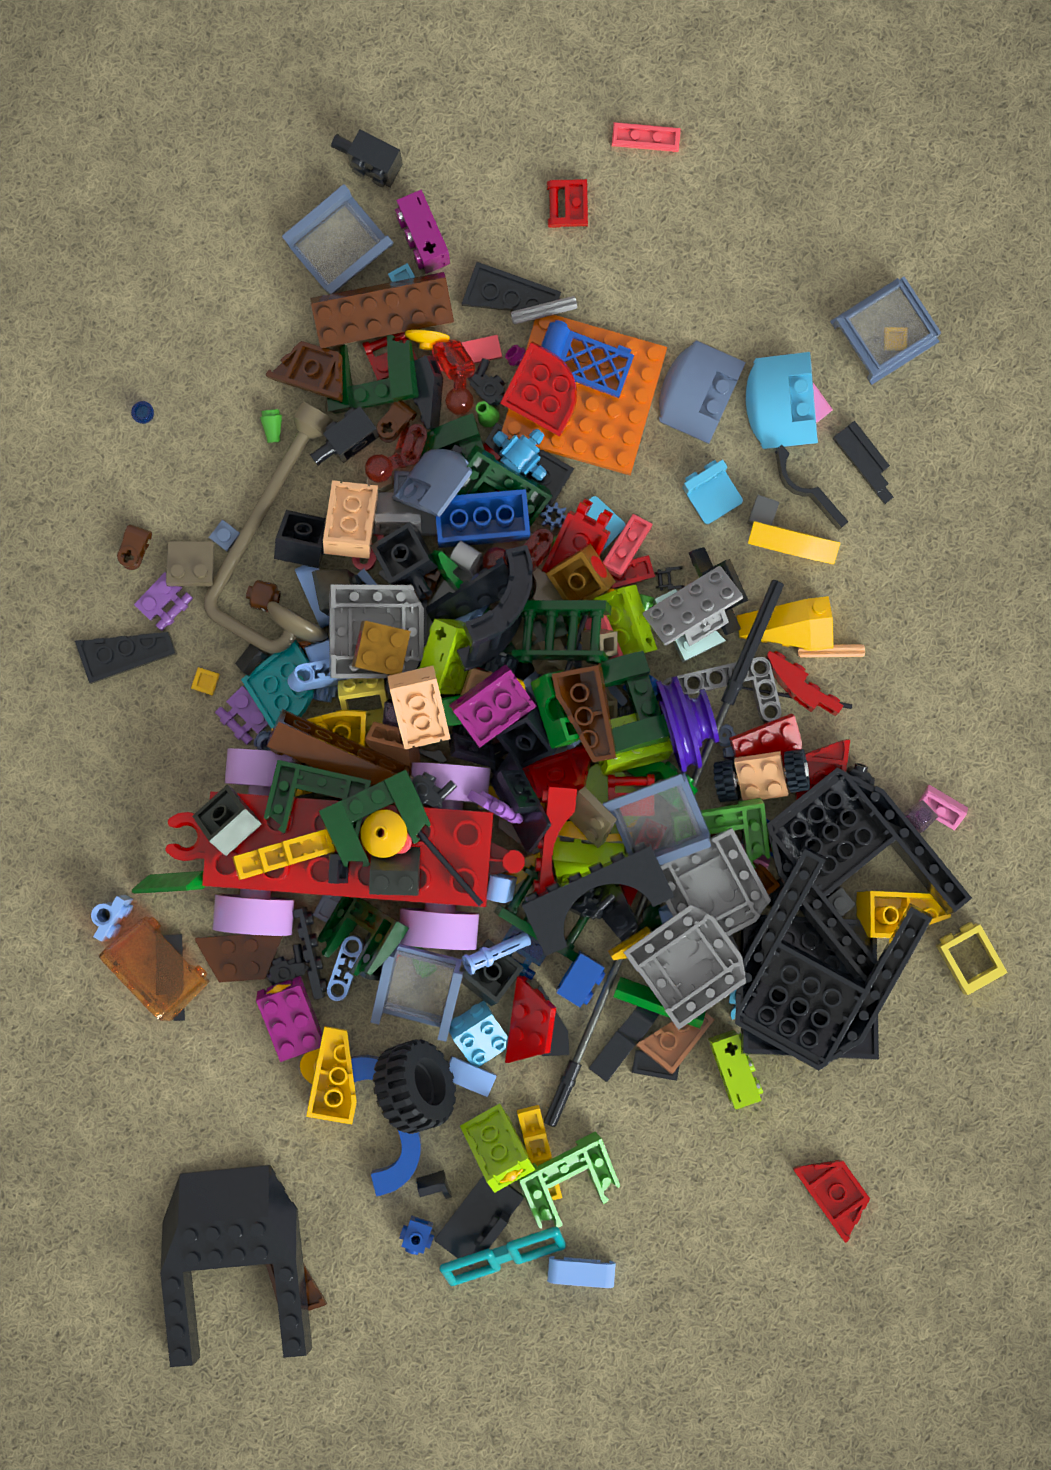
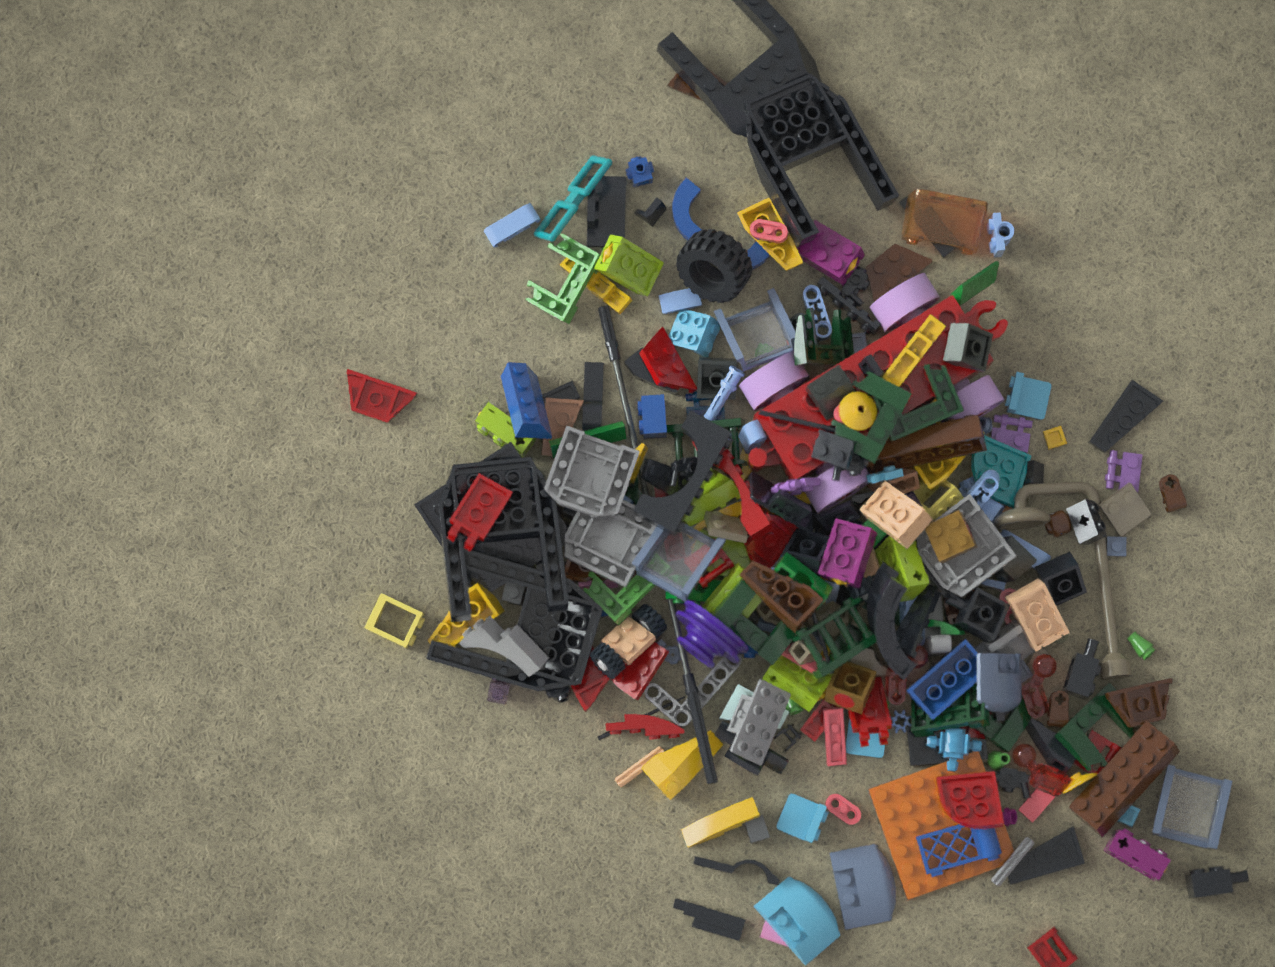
camera: 145 degrees right, 5 degrees down
(142, 412) = (1236, 591): clear blue plate -> none
(201, 738) = (1028, 396): none -> medium azure bracket
(226, 1168) = (797, 126): none -> black wedge
(236, 587) = (1087, 522): none -> brick
(334, 1082) = (770, 230): none -> coral plate
(395, 754) = (889, 472): none -> medium azure plate
(435, 813) = (833, 449): none -> black plate
(667, 474) = (843, 809): none -> coral plate
(696, 1082) = (525, 402): none -> blue slope
(828, 1005) = (478, 510): none -> red tile
(884, 855) = (509, 642): none -> light grey arch
(948, 809) = (485, 713): bright pink slope -> none

